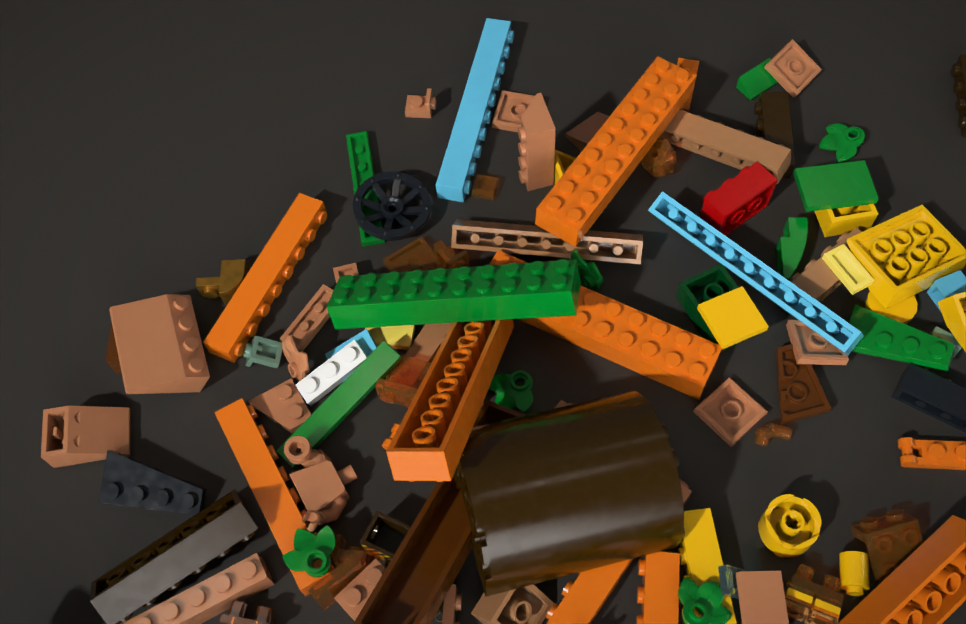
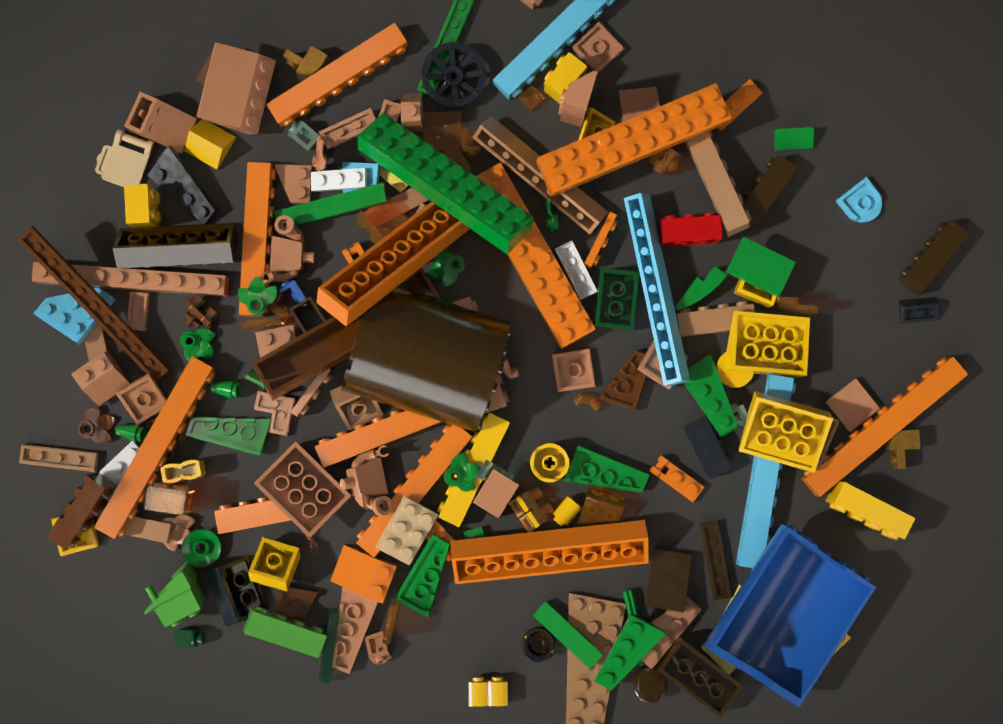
camera: 30 degrees right, 25 degrees up
(62, 509) = (122, 164): none -> tan piece
(106, 534) = (142, 206): none -> yellow brick
(157, 426) = (208, 143): none -> yellow slope
(357, 521) = (297, 292): none -> blue bracket
(371, 256) = (412, 111): none -> nougat slope
(504, 145) = (567, 70): none -> yellow brick
(653, 306) = (575, 270): none -> white plate
(655, 266) = (601, 240): none -> orange plate
(732, 317) = (614, 315): yellow tile -> none
(792, 68) = (824, 146): nougat tile -> none
(839, 141) = (806, 229): green plate -> none
(848, 269) = (720, 330): light yellow tile -> none
(856, 497) = (596, 469): none -> green wing
(866, 94) = (861, 202): none -> medium azure tile
(897, 202) = (792, 306): none -> clear orange slope

